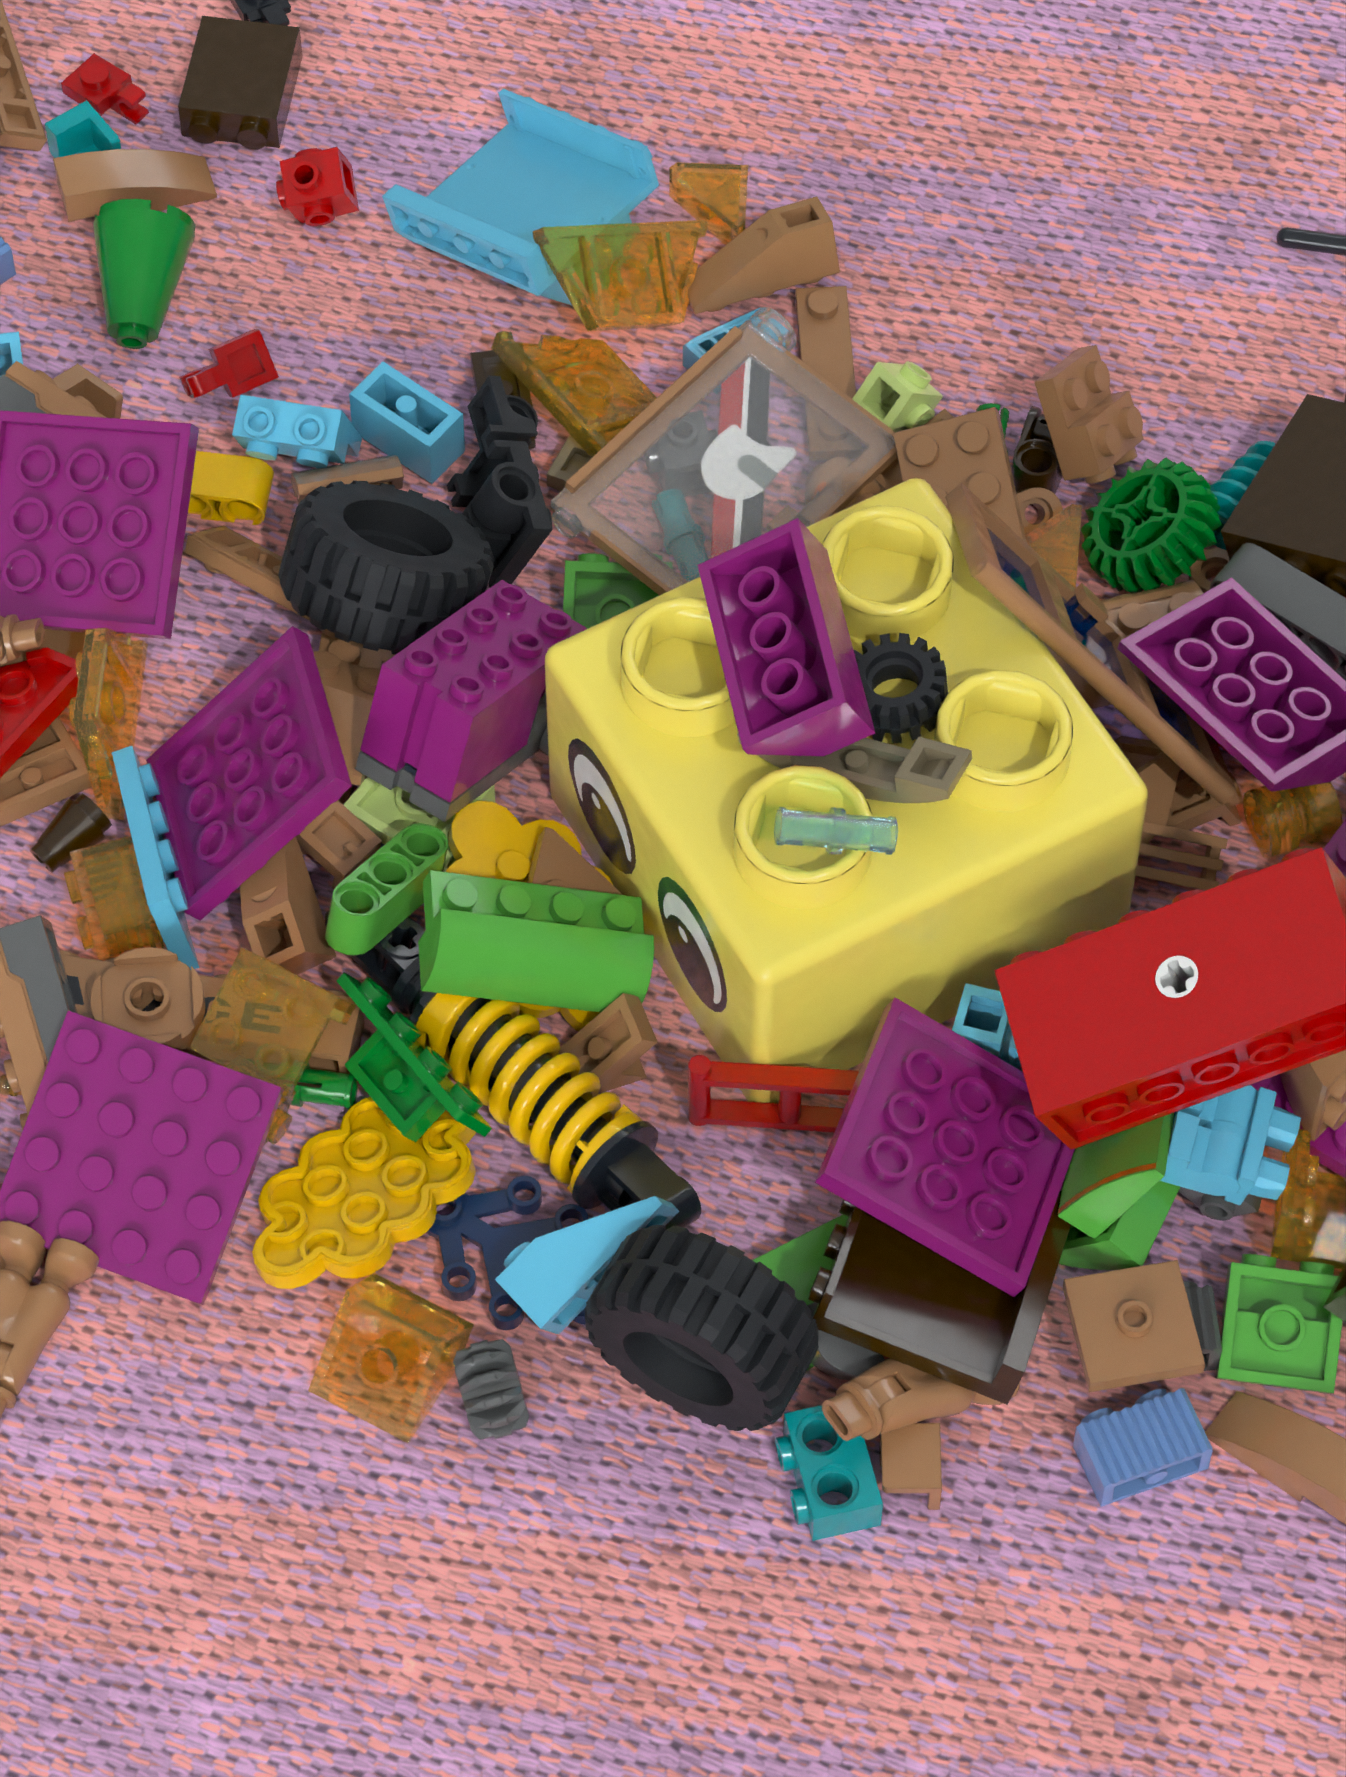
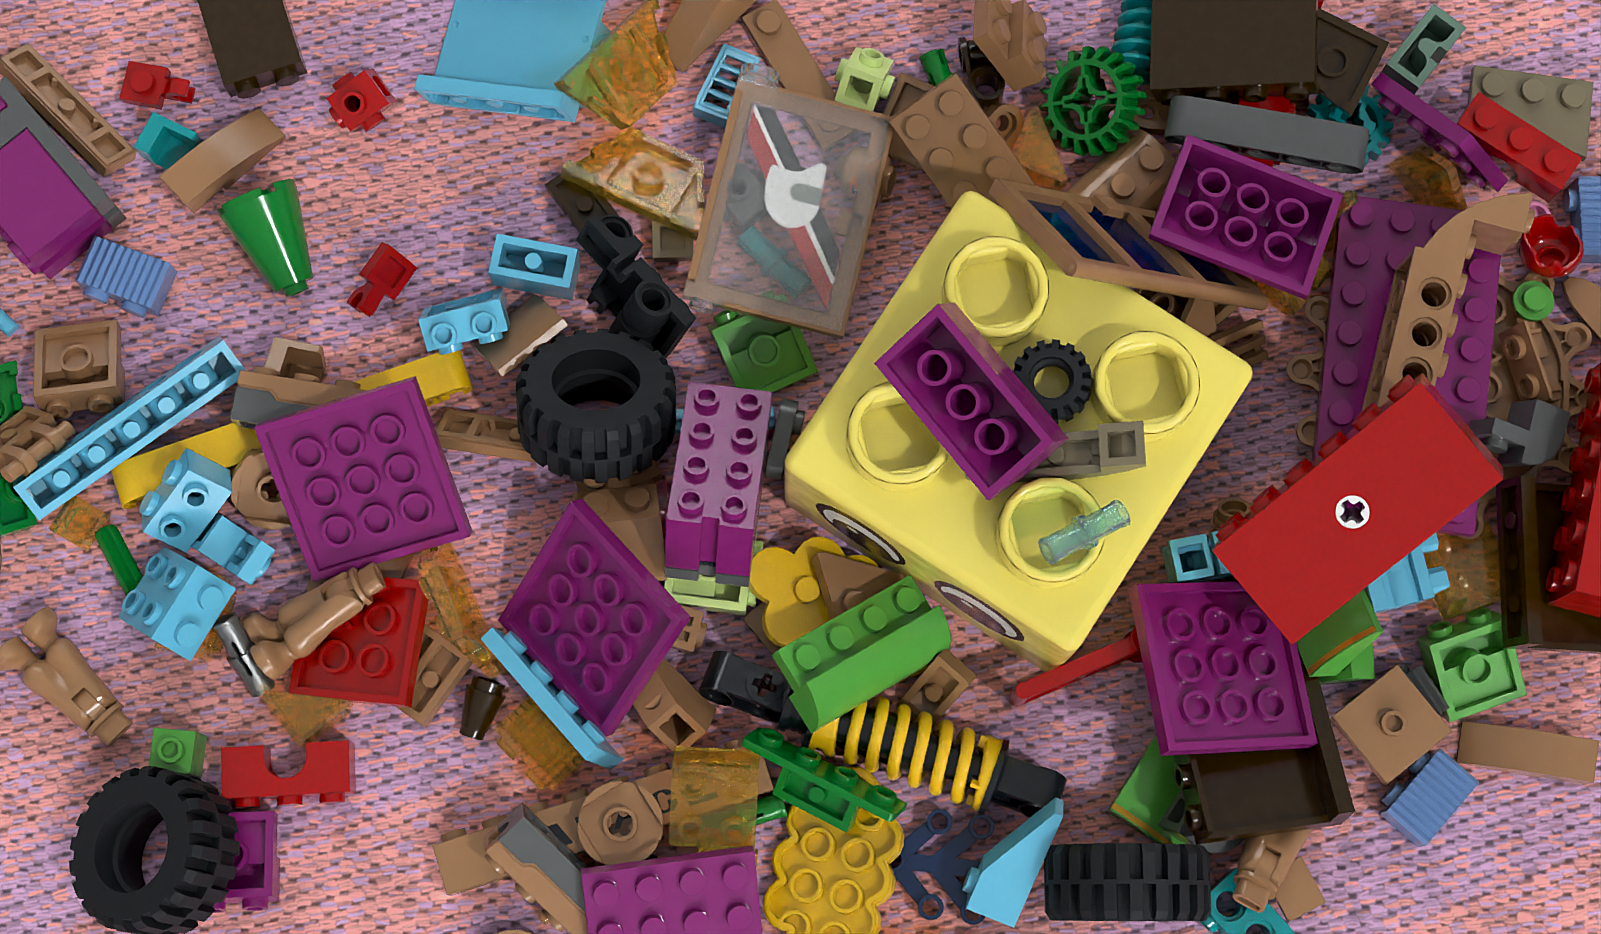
camera: 30 degrees left, 20 degrees up
(384, 889) = (735, 678): bright green beam -> none

